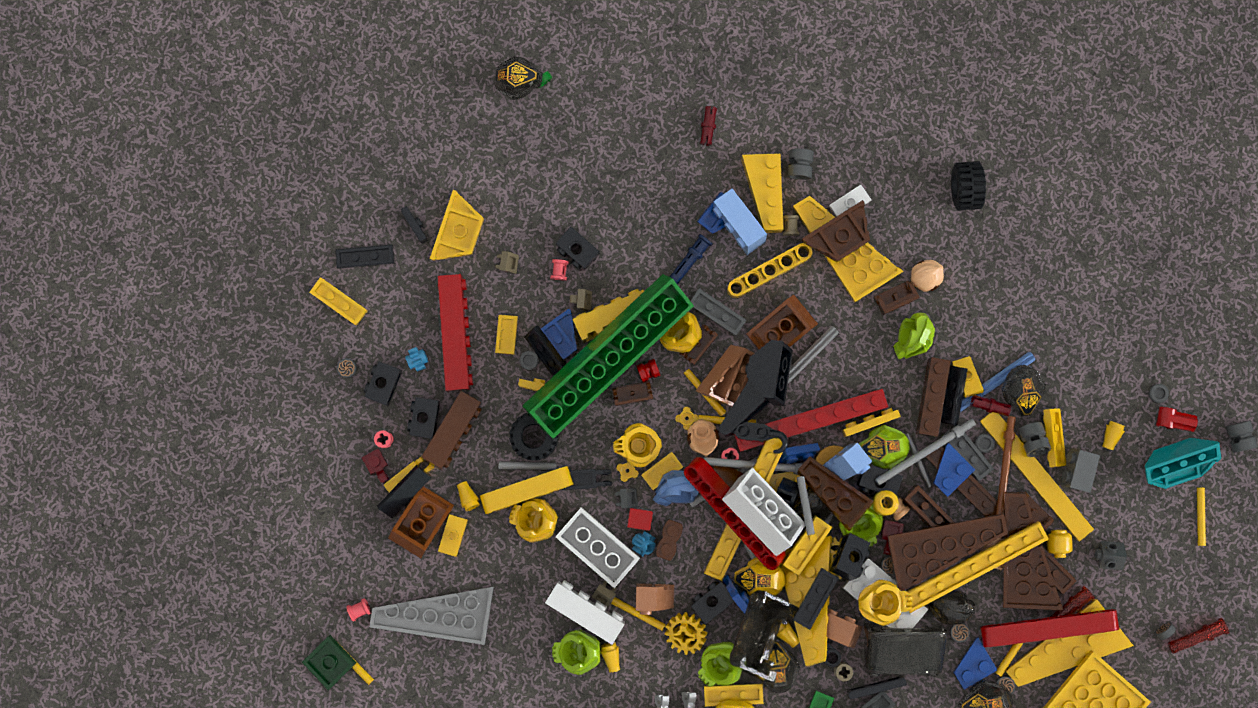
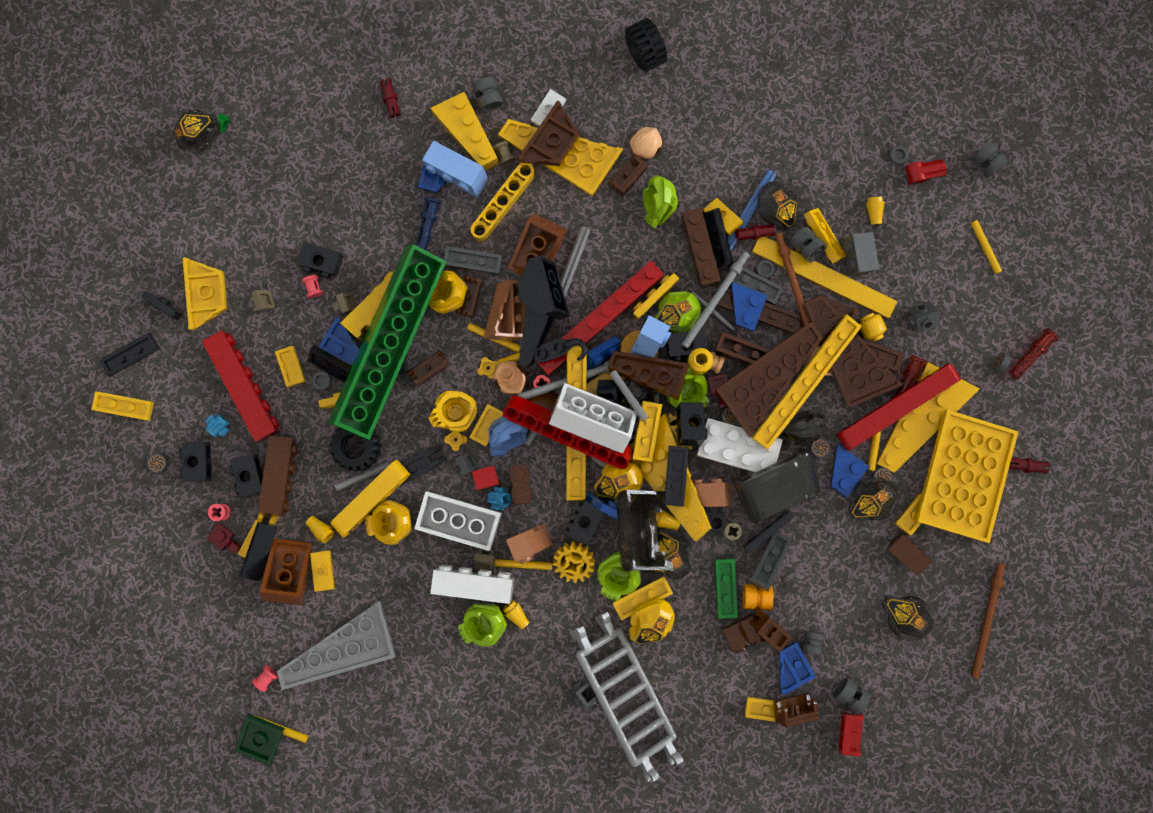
camera: 25 degrees left, 0 degrees up
(648, 370) = (433, 345): red wheel -> none
(883, 602) = (739, 450): yellow helmet -> none
(1181, 462) = (947, 205): teal wedge -> none

